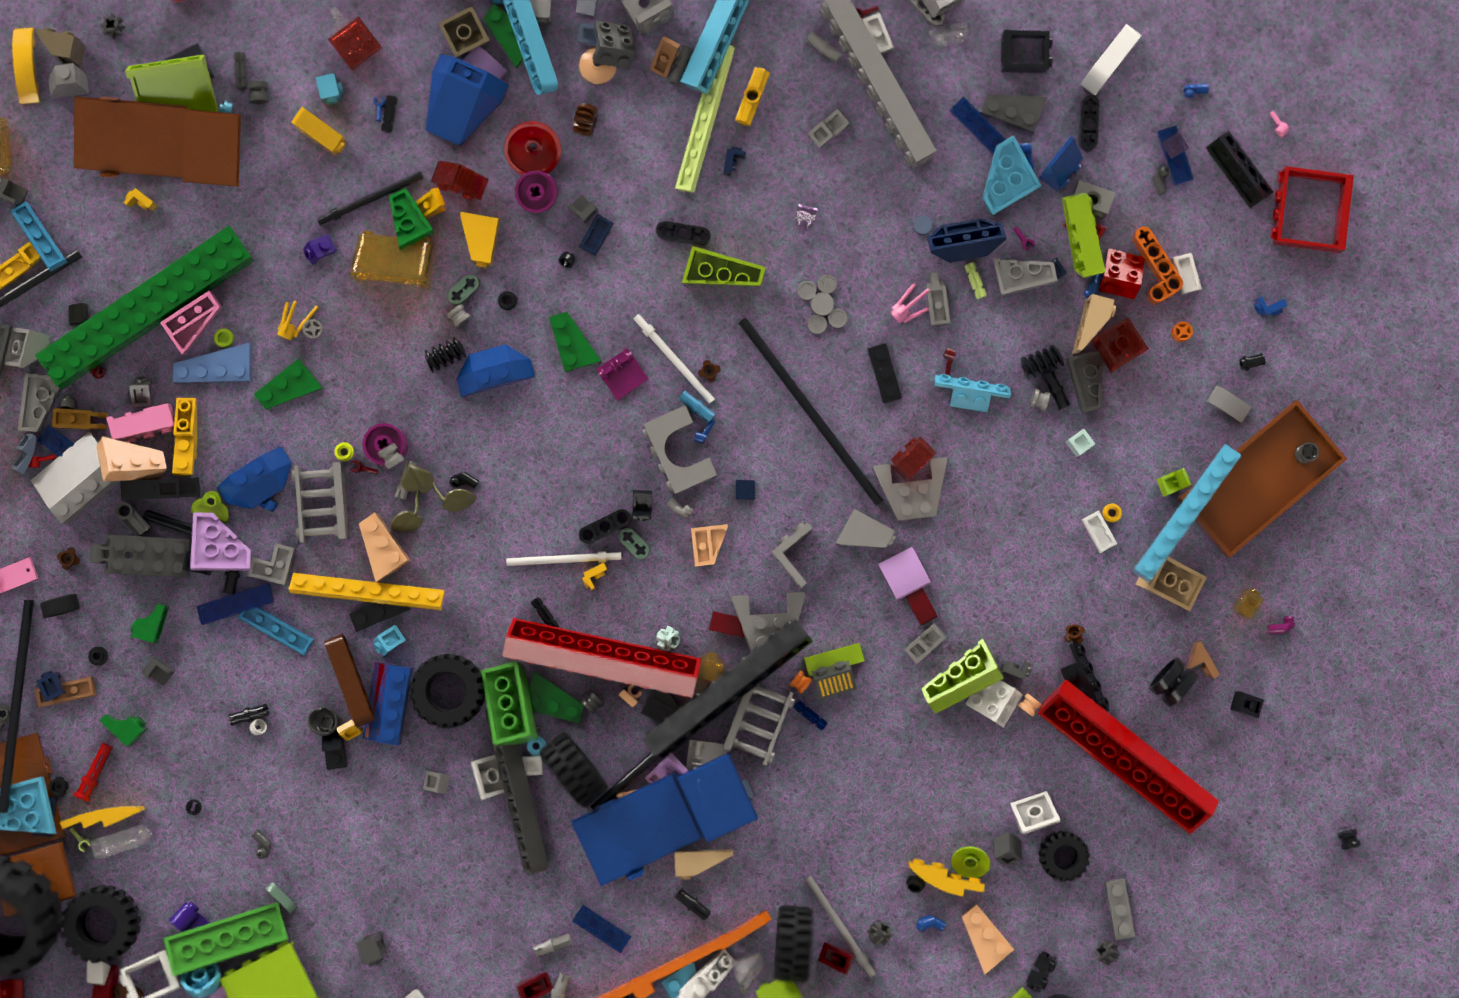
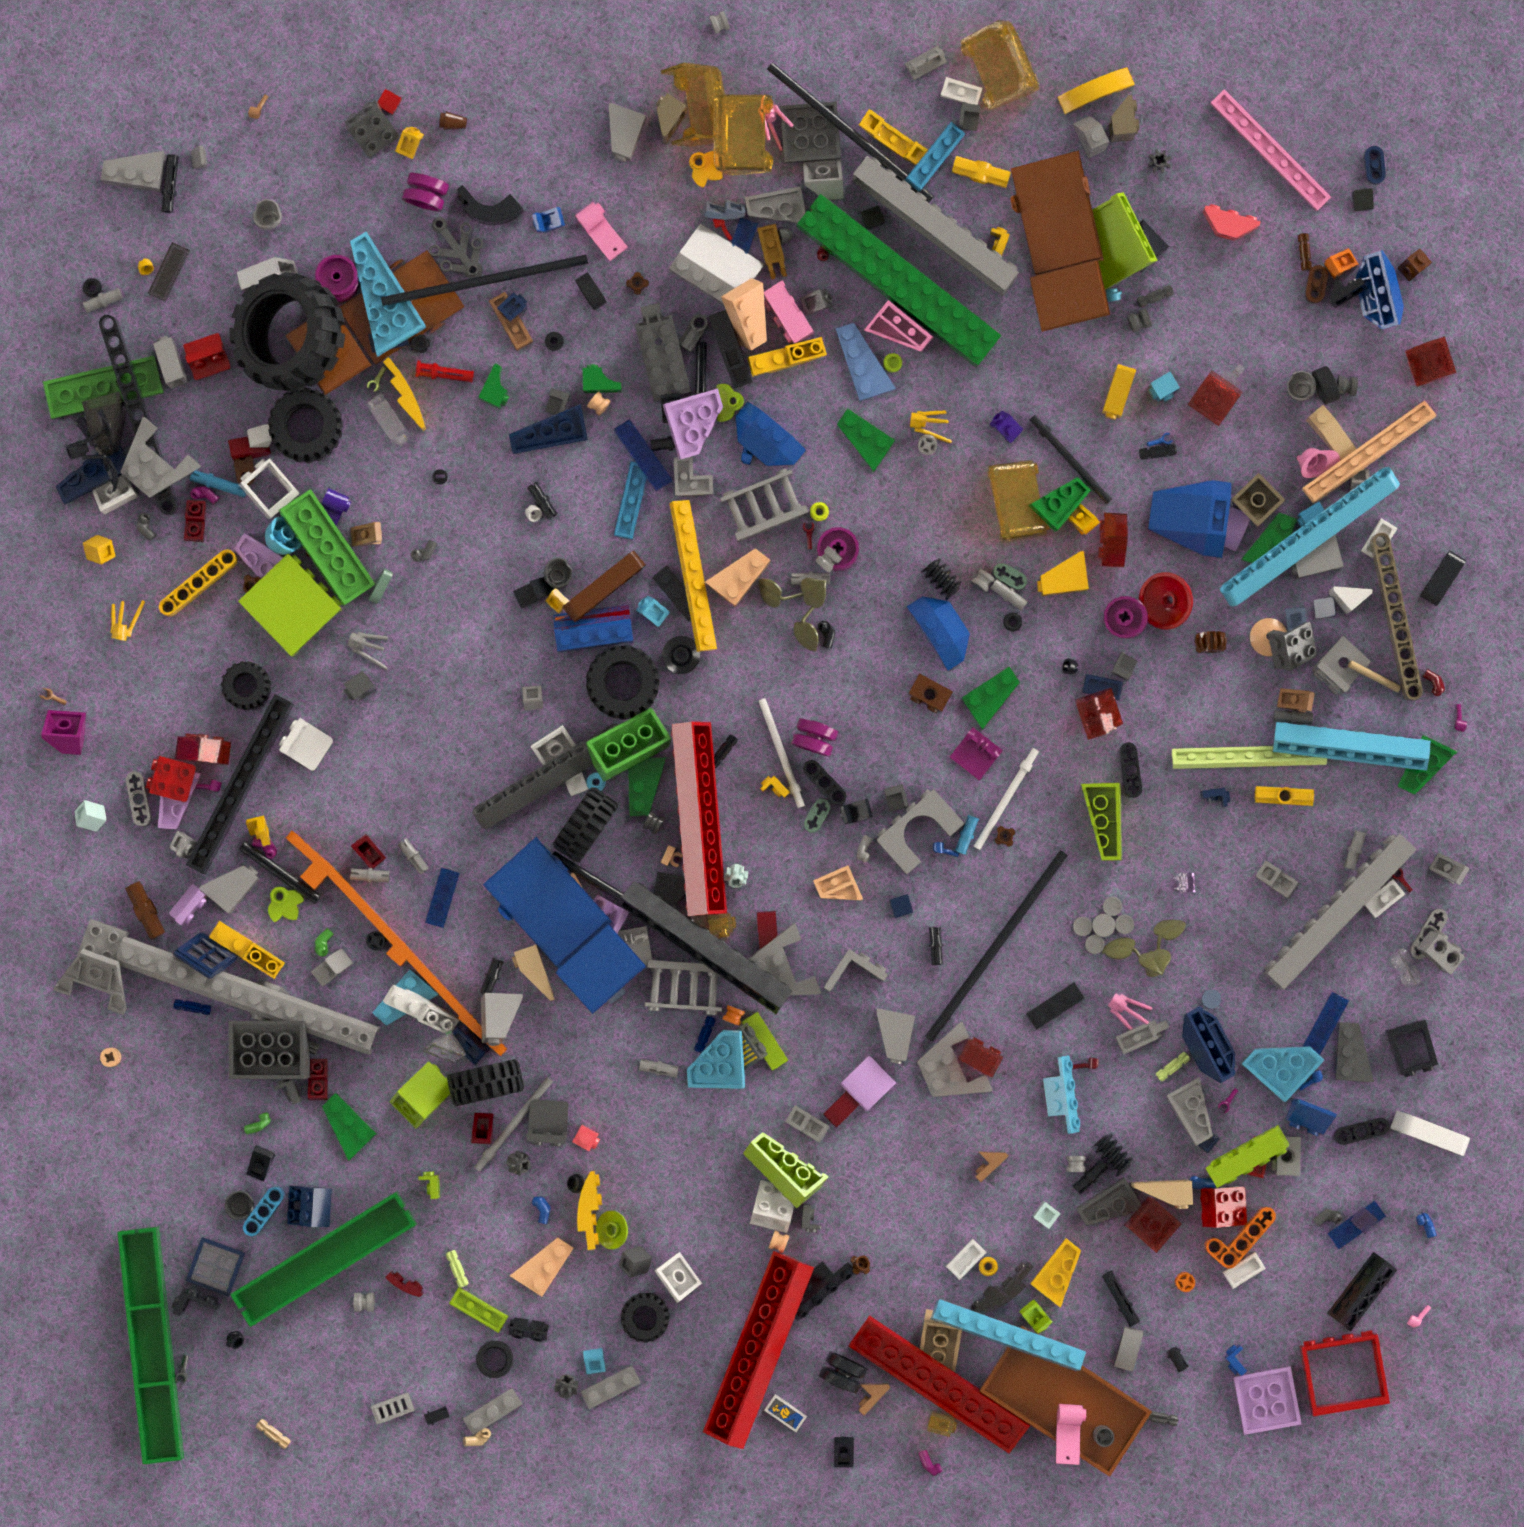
camera: 75 degrees right, 0 degrees up
(68, 197) = (981, 172): none -> yellow piece
(103, 256) = (935, 226): none -> light grey piece
(172, 631) = (598, 403): none -> light nougat wheel
(184, 680) = (553, 431): none -> dark blue wing
(226, 895) = (366, 534): none -> medium nougat slope
(328, 935) = (358, 642): none -> light grey plant
(432, 633) = (675, 646): none -> black dish
(480, 296) = (1008, 594): none -> light grey pin
(555, 520) = (814, 737): none -> magenta wheel
(556, 389) = (922, 684): none -> reddish brown brick
(620, 245) = (1099, 713): none -> clear red slope
(640, 462) = (896, 797): none -> dark grey panel
(732, 911) = (497, 1015): none -> light grey slope
(752, 943) = (471, 1043): none -> dark blue slope
(793, 468) = (936, 945): none -> black axle
(829, 769) = (658, 1068): none -> light grey pin
(843, 709) = (720, 1063): none -> medium azure plate
(849, 892) = (548, 1122): none -> dark grey bracket
(873, 267) = (1154, 961): none -> olive plant
(875, 860) = (586, 1138): none -> coral brick
(1014, 476) = (994, 1160): none -> medium nougat slope
(1090, 917) = (594, 1361): none -> medium azure slope
(1137, 449) = (1057, 1272): none -> yellow wing
(1144, 513) = (998, 1297): none -> clear smoke slope
(1186, 395) = (1120, 1298): none -> black pin
(1193, 748) = (785, 1413): none -> tile
(1210, 594) = (938, 1384): none -> red plate
(1297, 486) = (1068, 1433): none -> bright pink door
(1304, 391) = (1163, 1418): none -> dark grey axle
(1315, 289) = (1267, 1400): none -> lavender plate

